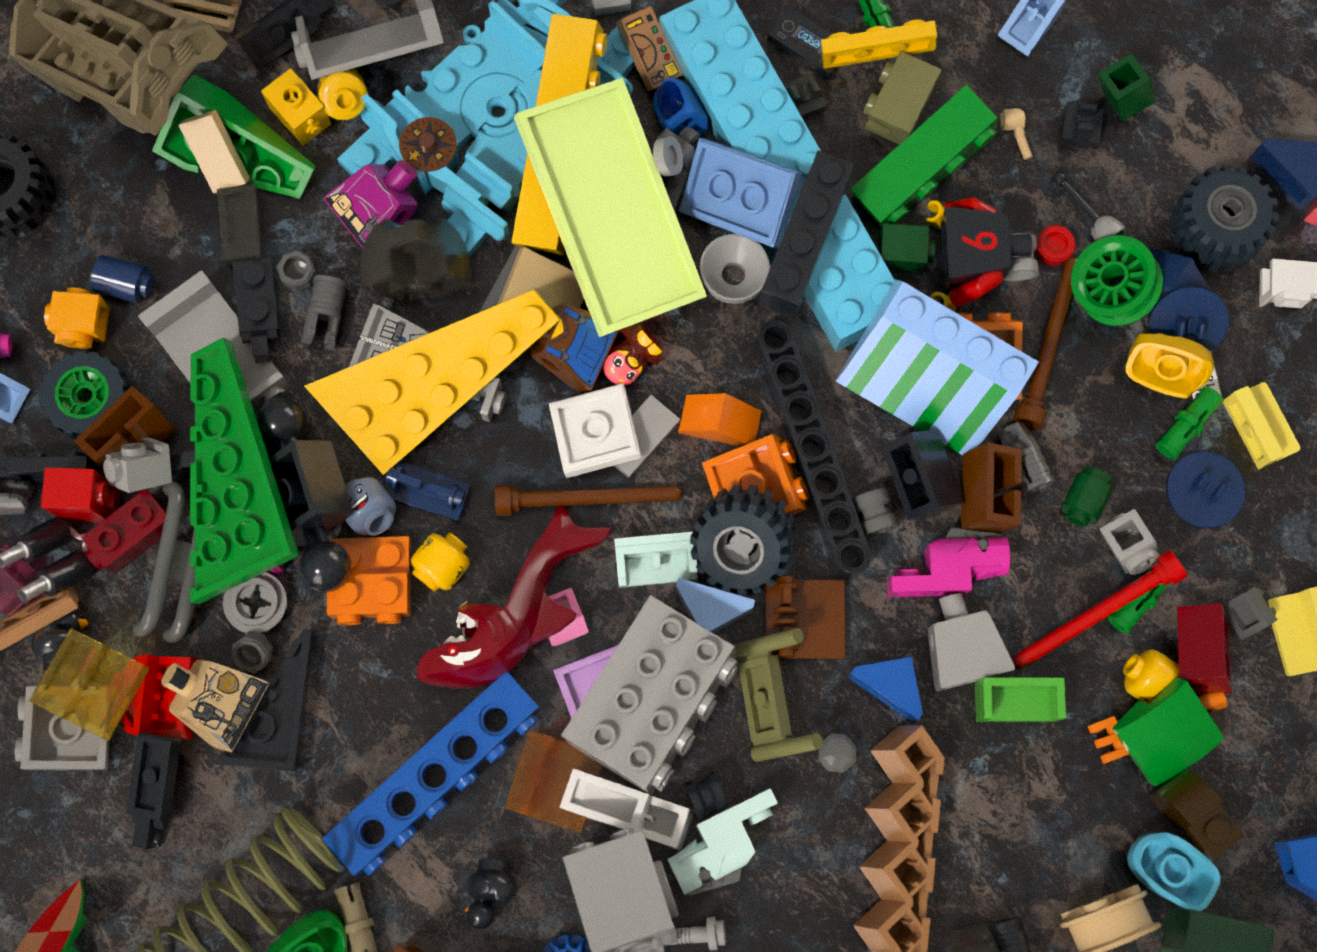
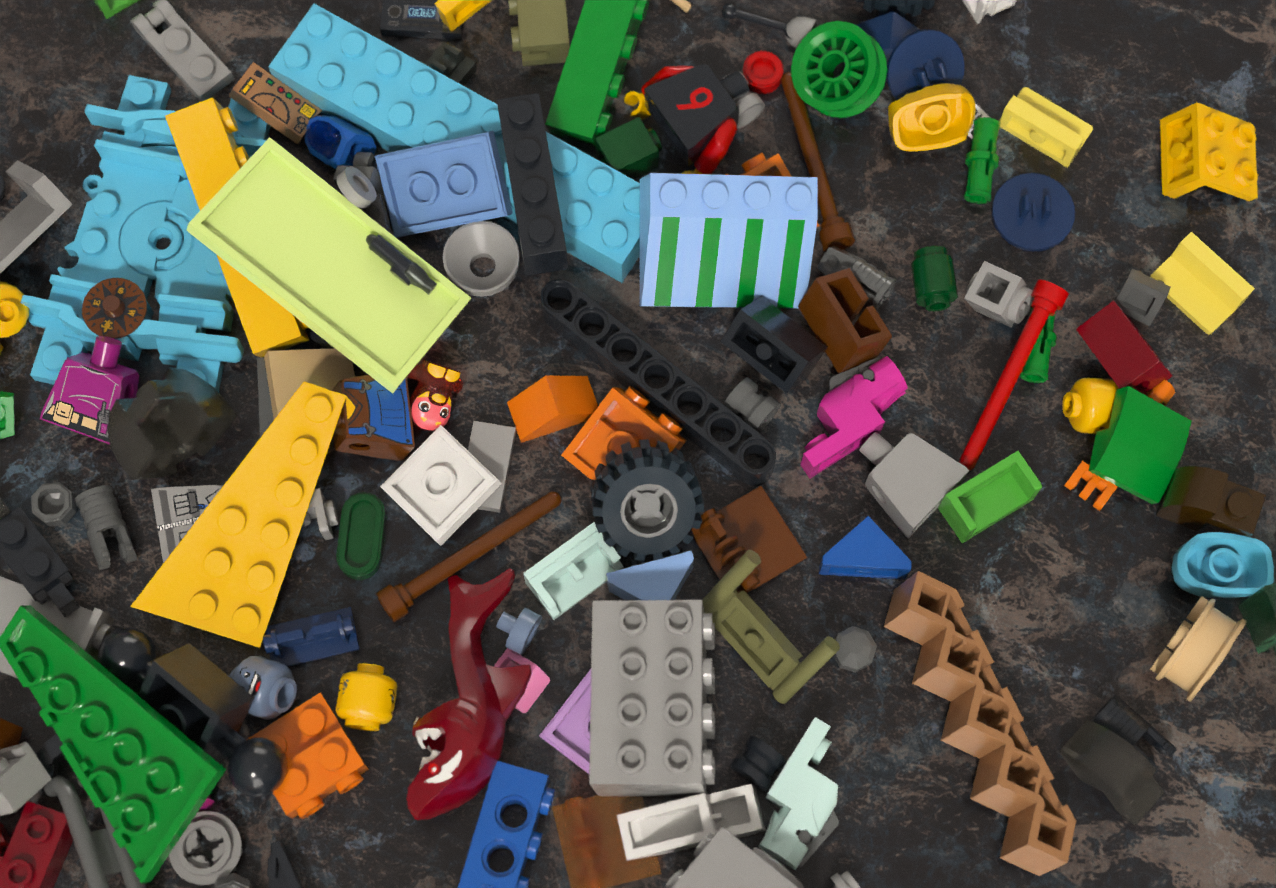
camera: 30 degrees left, 5 degrees down
(512, 433) = (361, 536): none -> dark green tile
(587, 580) = (520, 629): none -> sand blue tile
(666, 240) = (400, 265): none -> piece

